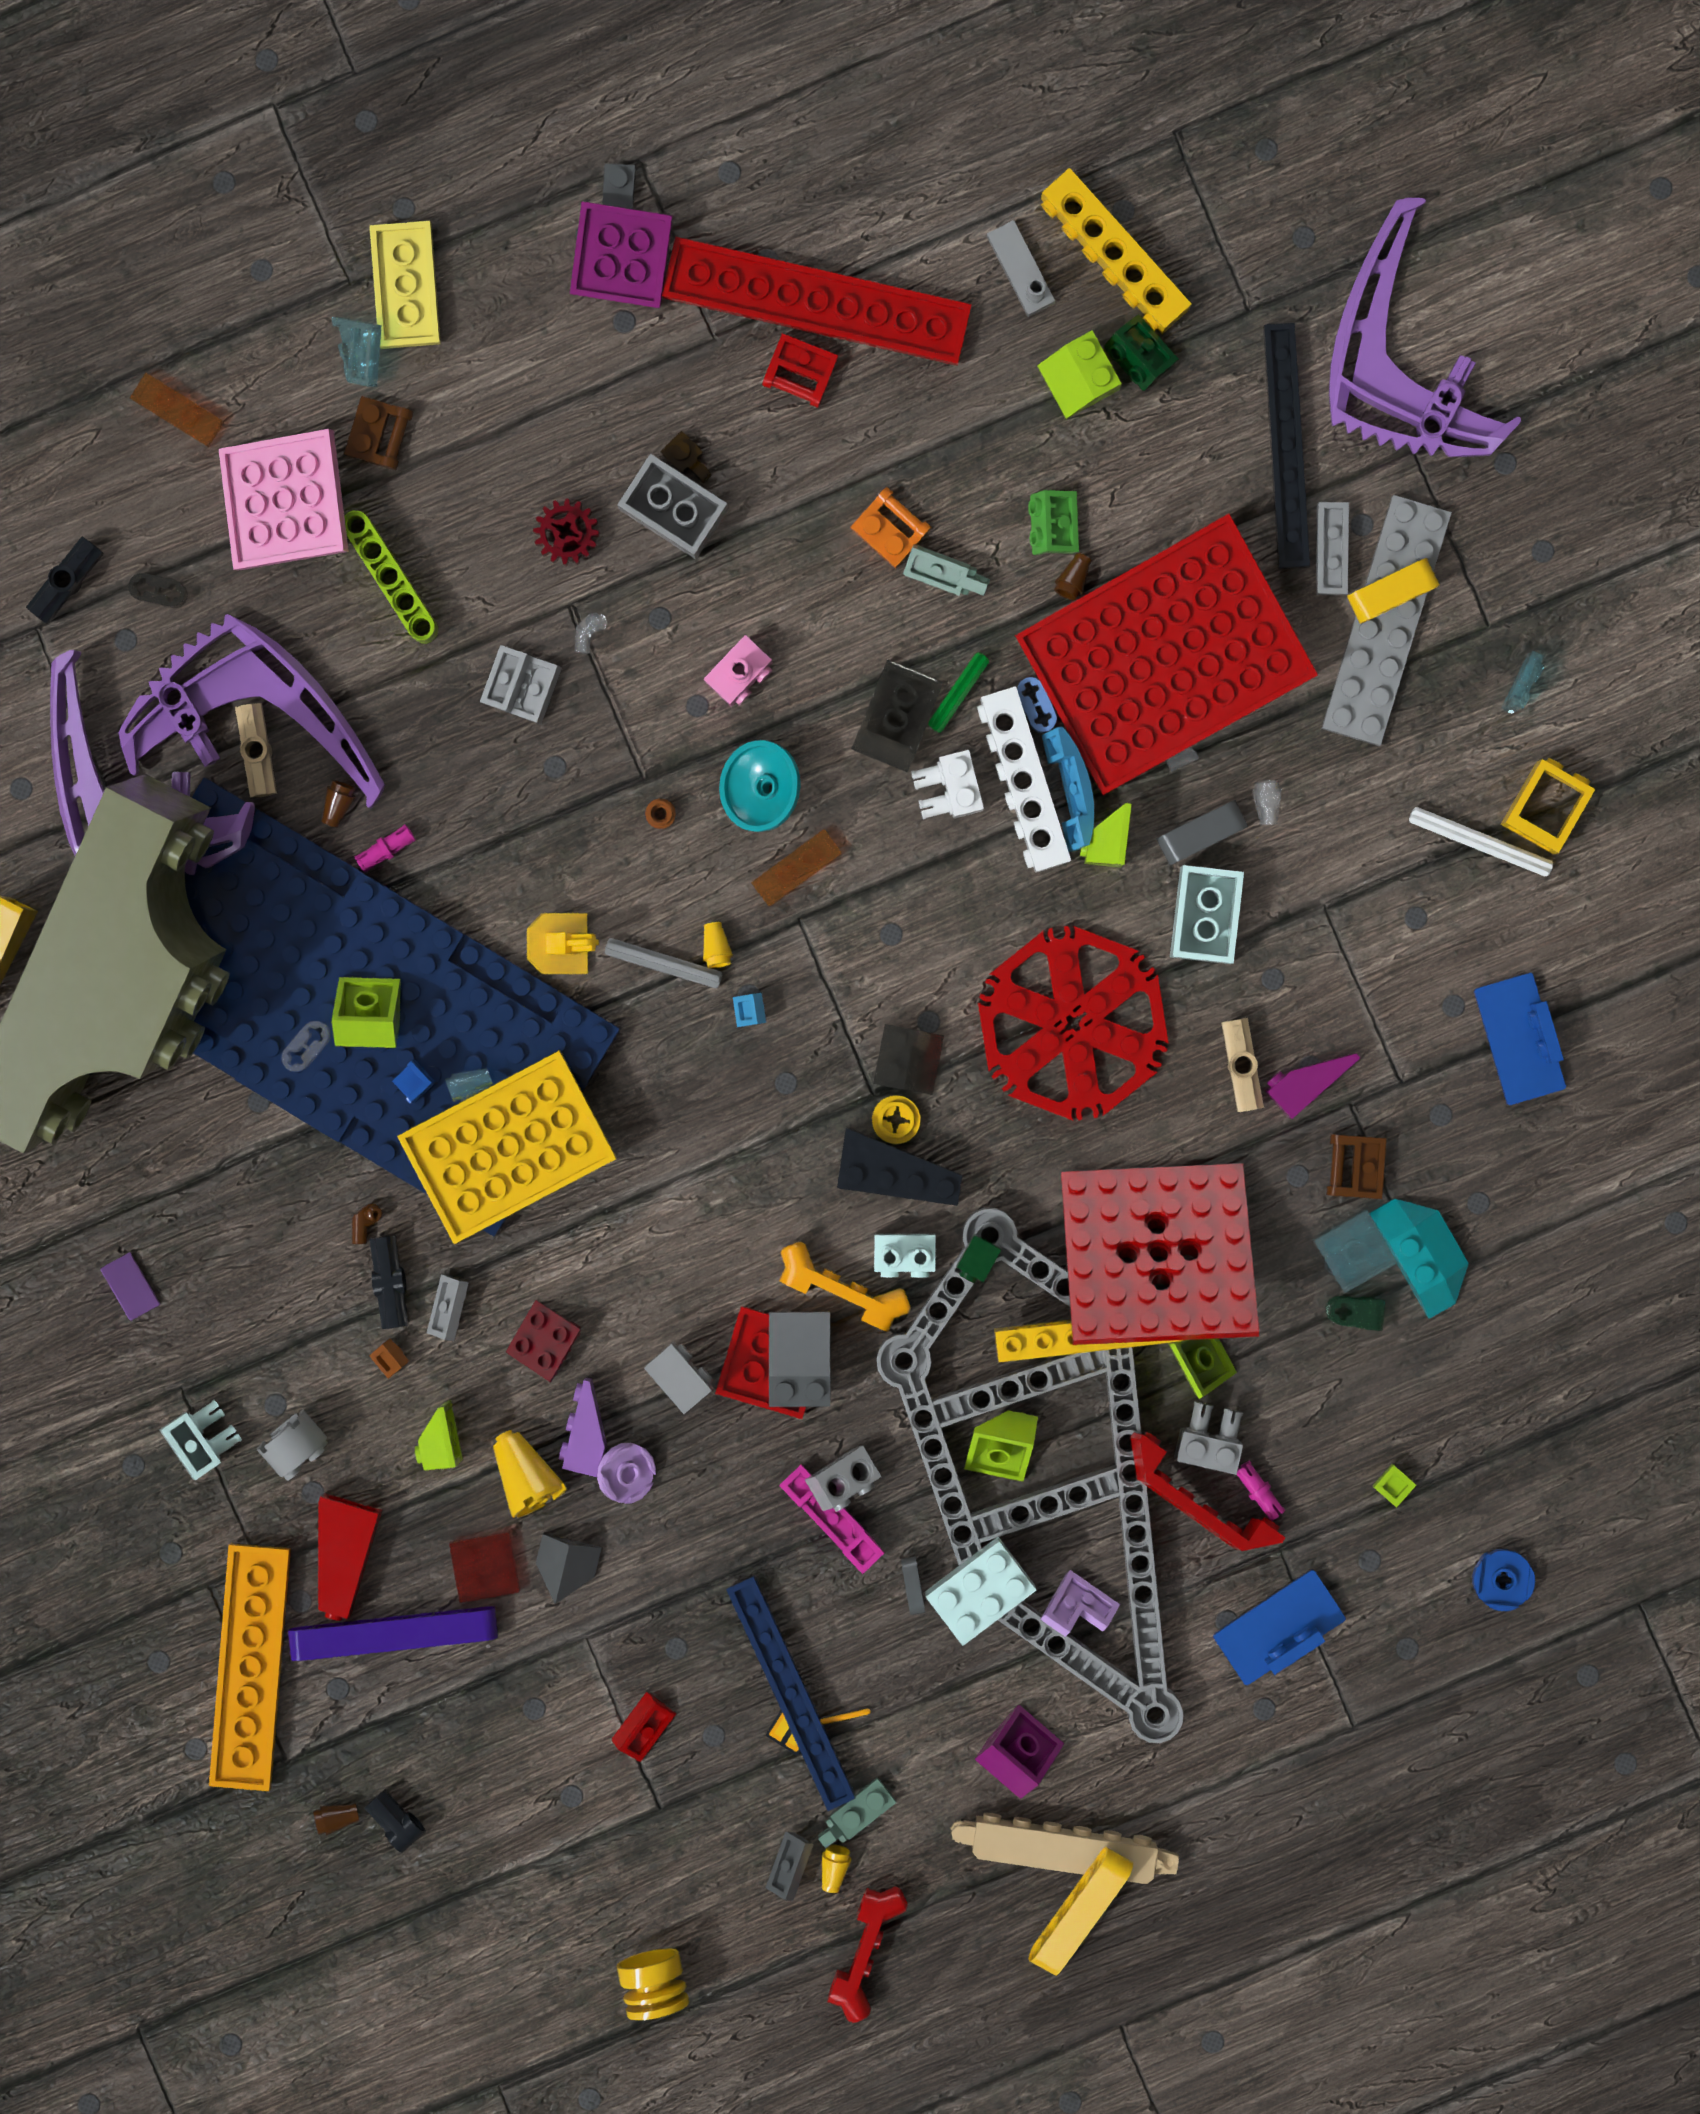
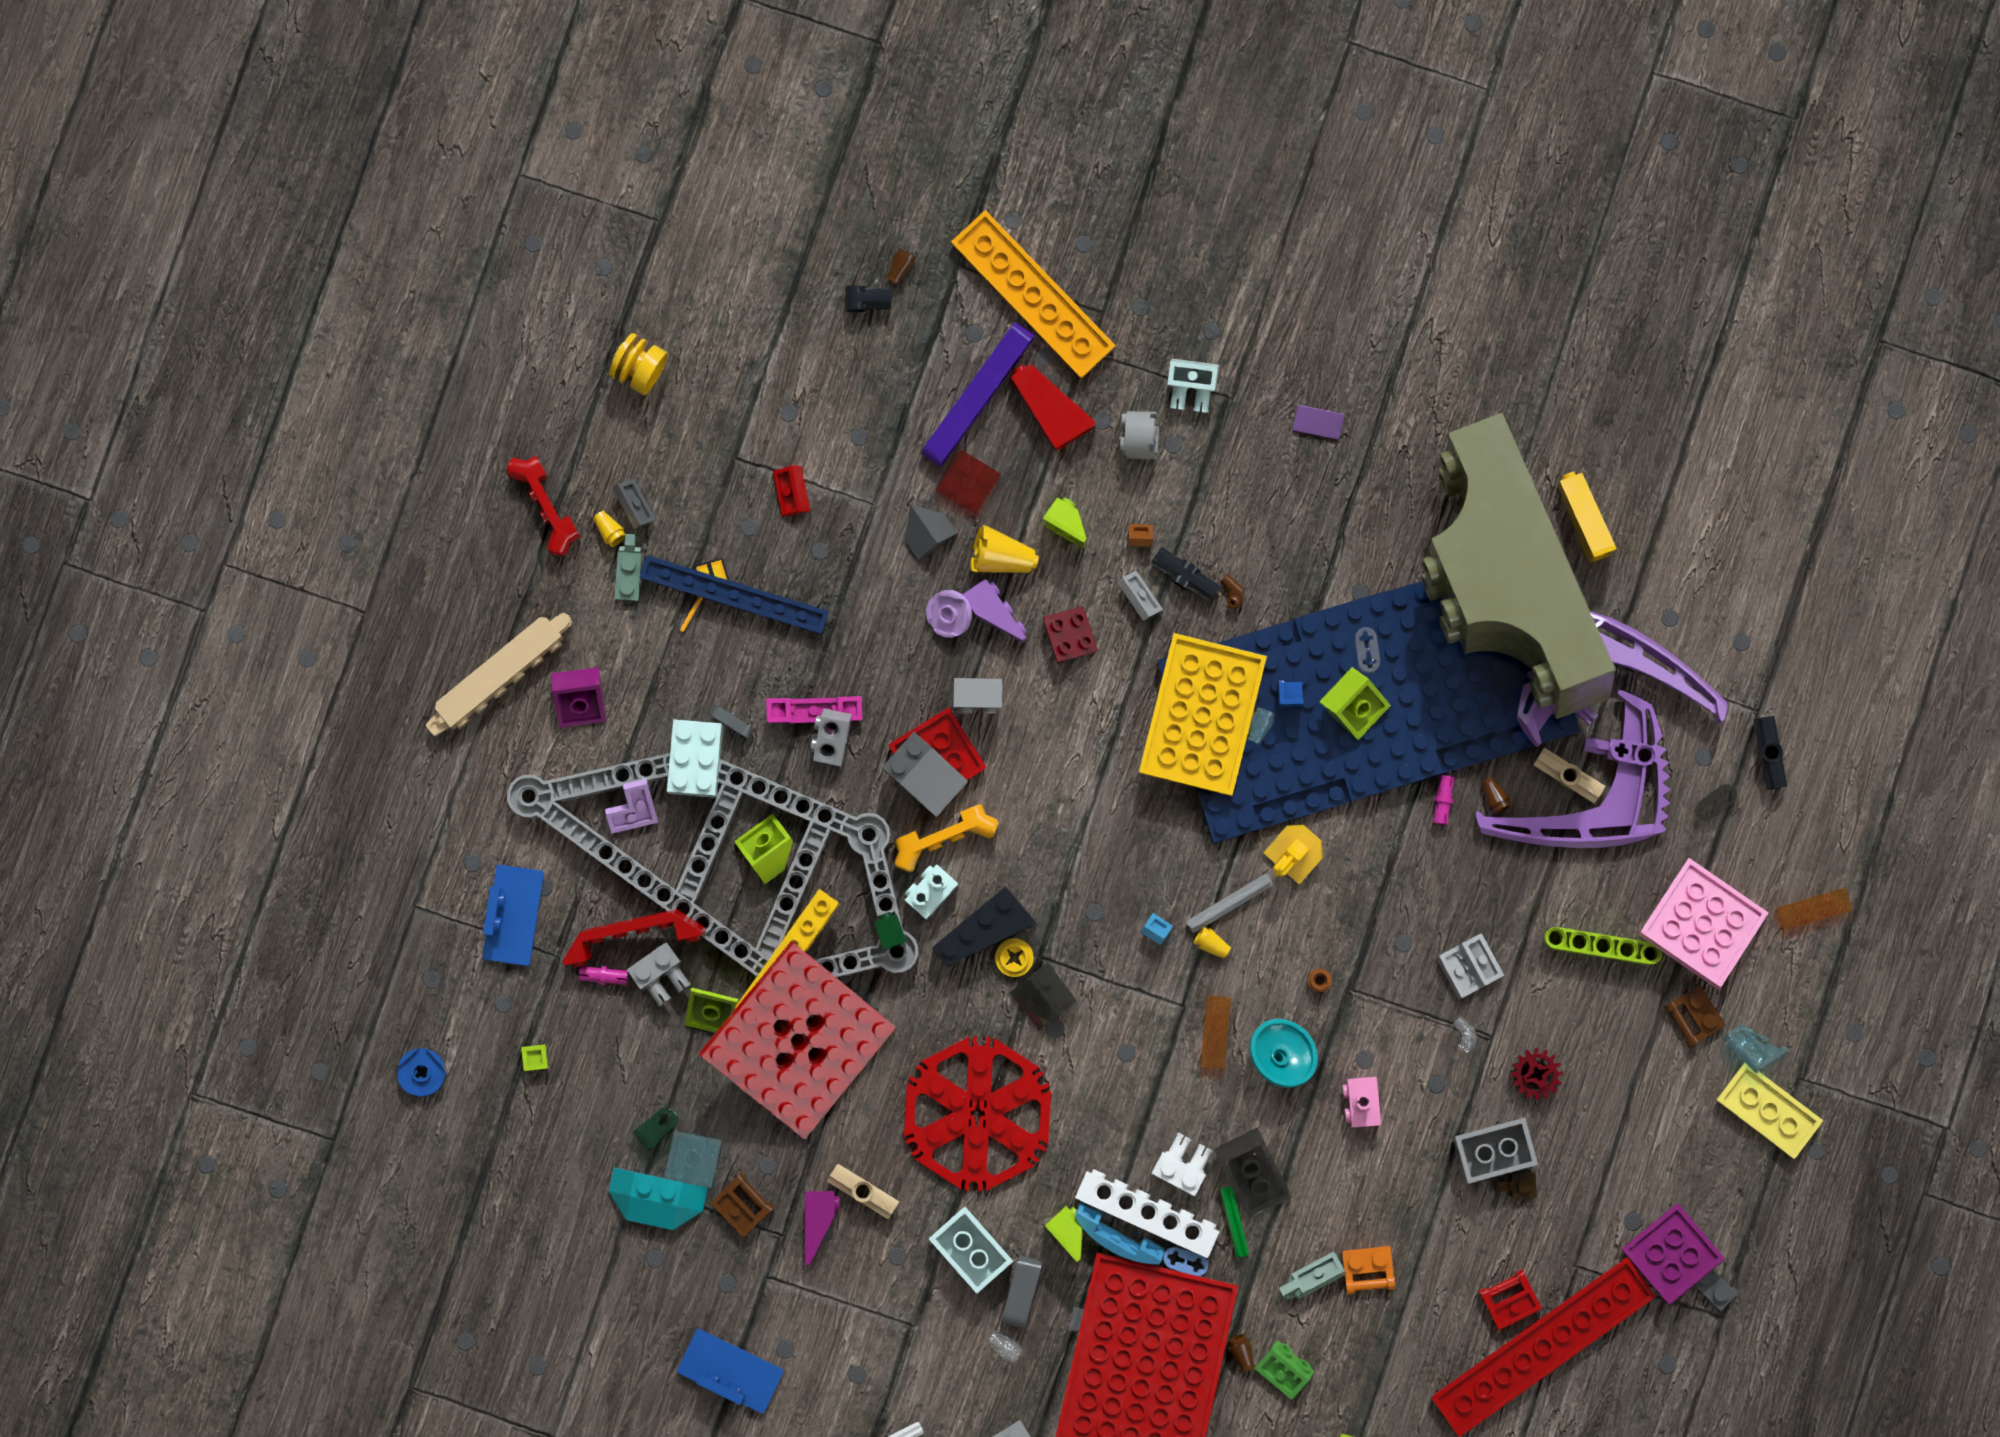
camera: 130 degrees right, 5 degrees down
(1081, 1911) = (455, 649): yellow beam -> none

